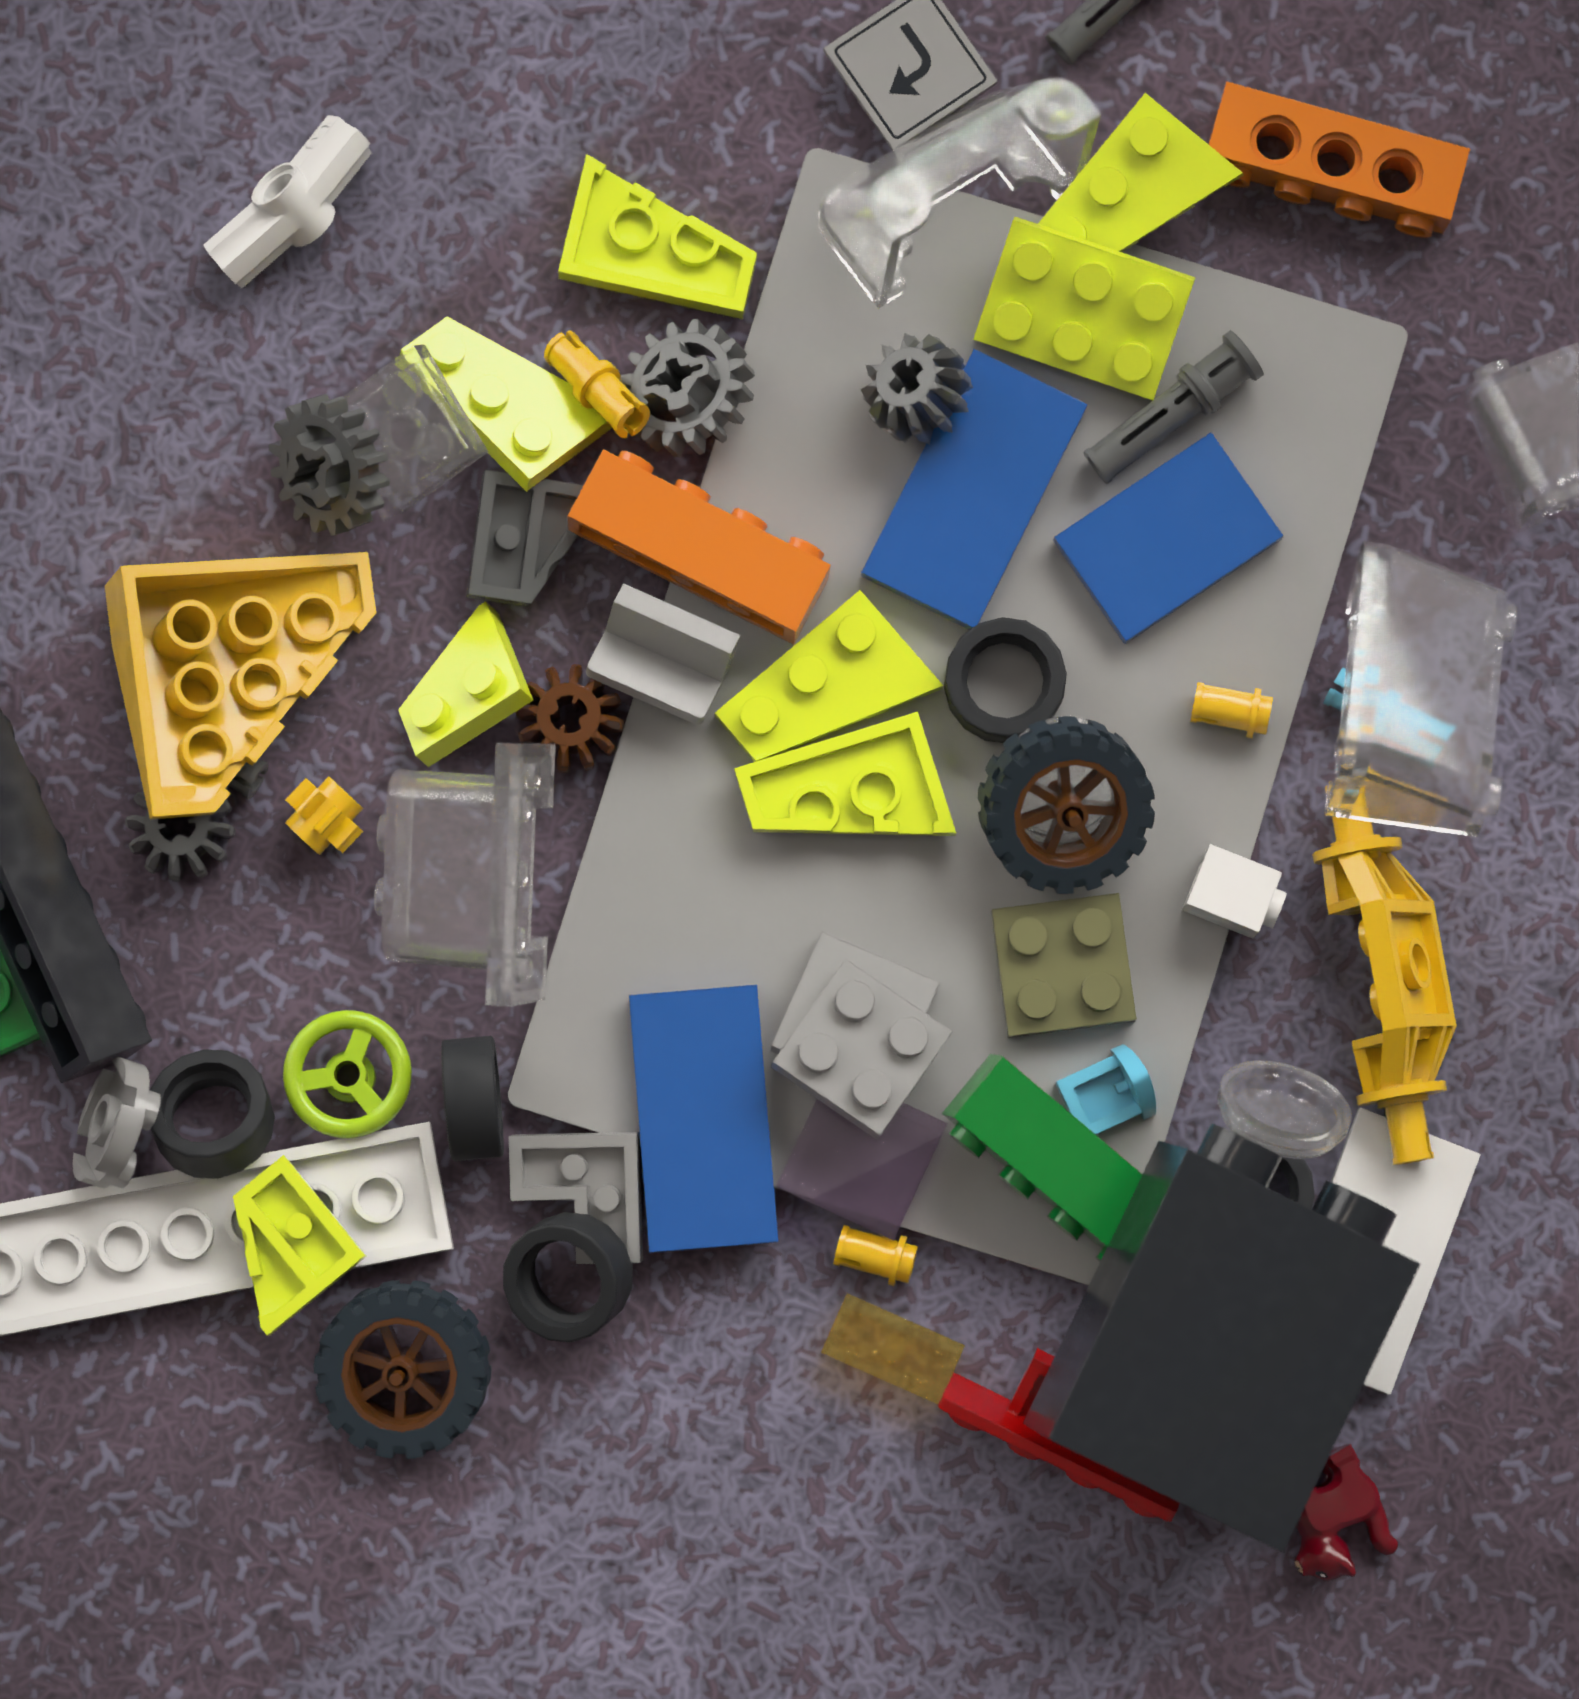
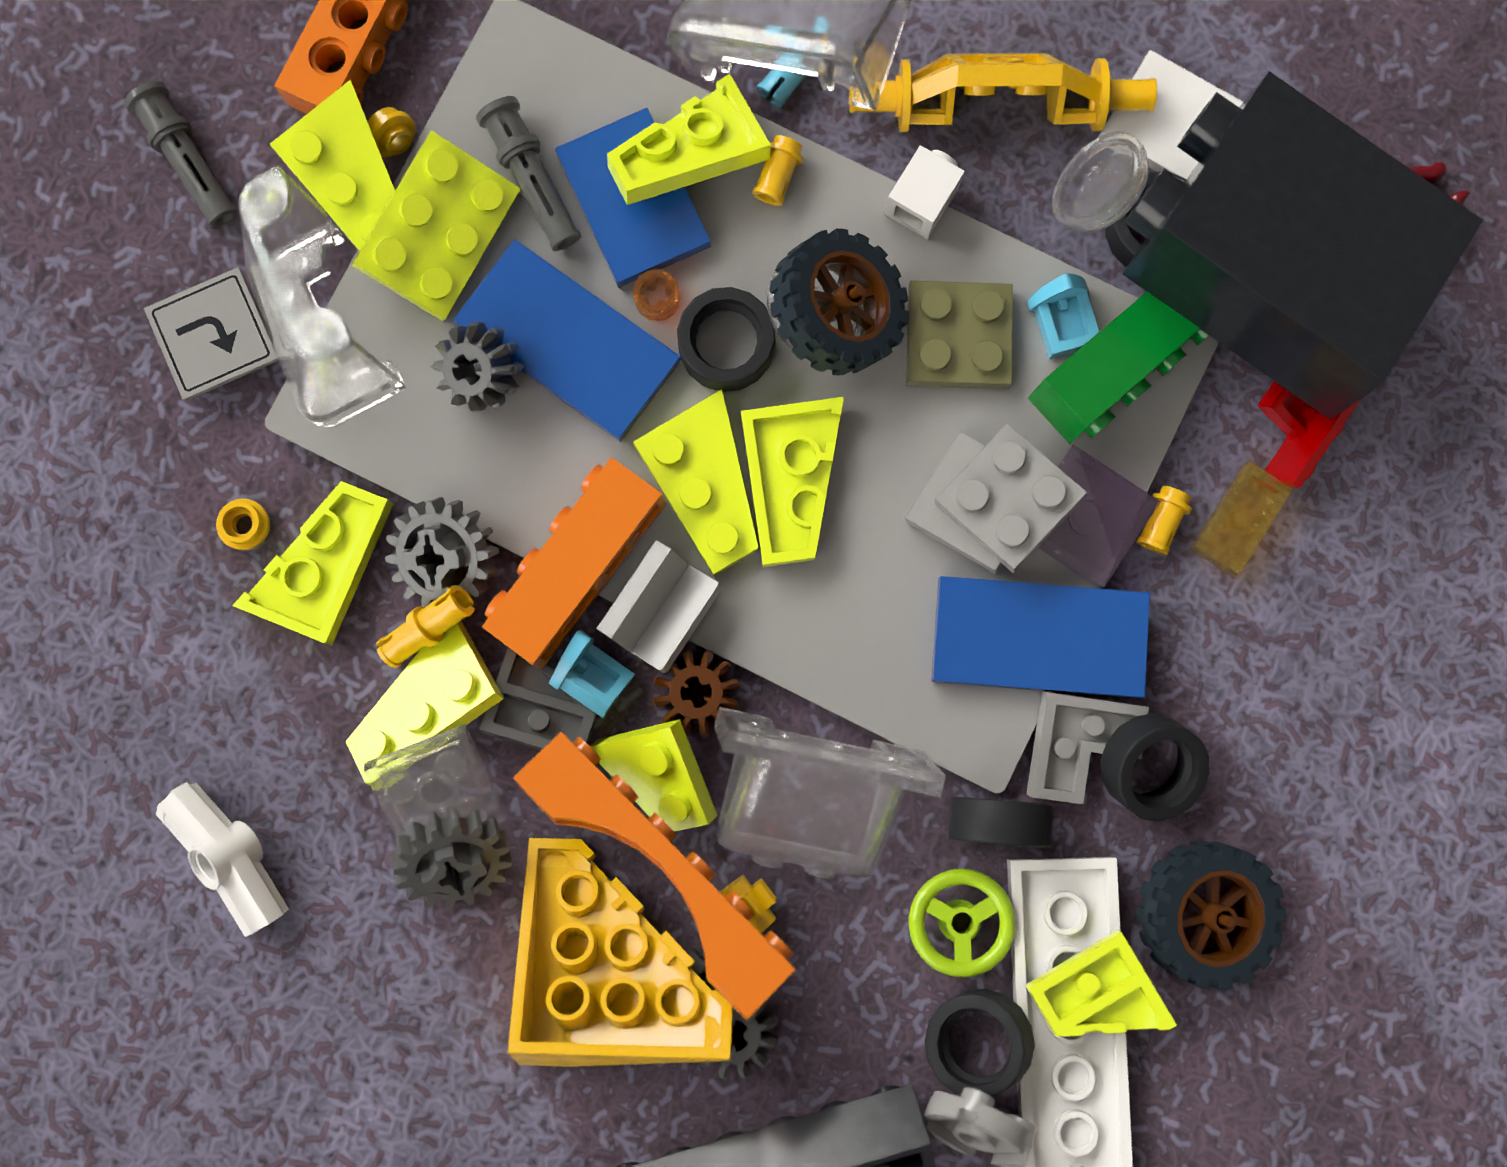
camera: 80 degrees left, 0 degrees up
(268, 802) = (577, 794): none -> orange arch
(571, 589) = (590, 675): none -> medium azure tile
(687, 127) = (228, 519): none -> yellow plate
(1065, 579) = (650, 280): none -> clear orange bush
(1203, 230) = (392, 131): none -> yellow plate
(1238, 600) = (696, 145): none -> neon yellow wing

